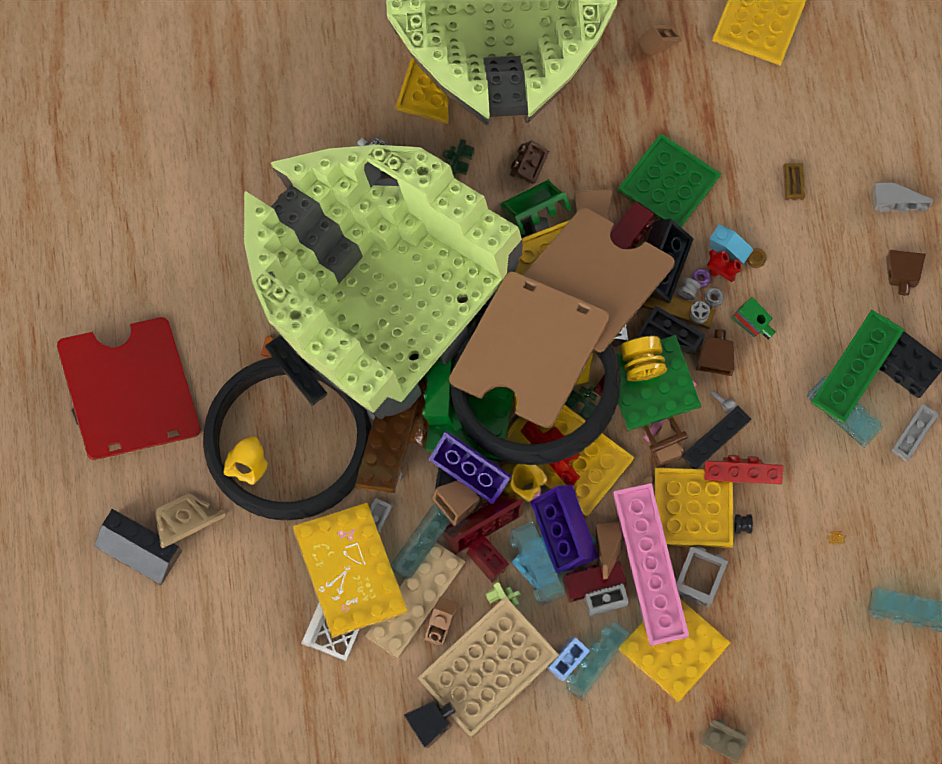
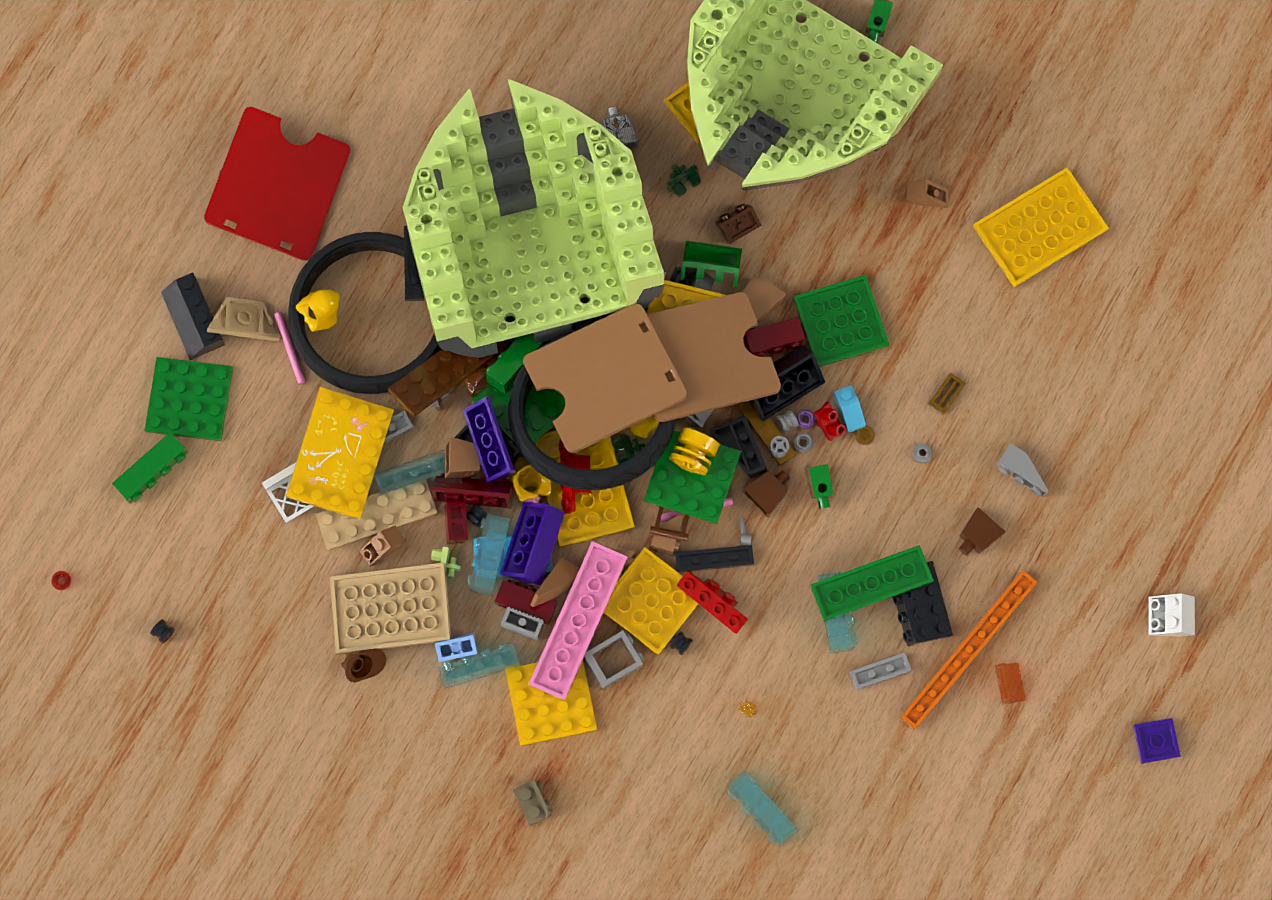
camera: 35 degrees right, 5 degrees up
(185, 617) = (188, 399): none -> green plate
(196, 698) = (150, 467): none -> green brick
(239, 515) = (289, 347): none -> bright pink bar
(430, 721) = (313, 618): black torso -> none
(500, 540) = (476, 515): none -> black wheel
(501, 729) = (363, 664): none -> reddish brown piece
(812, 245) = (922, 459): none -> light grey plate

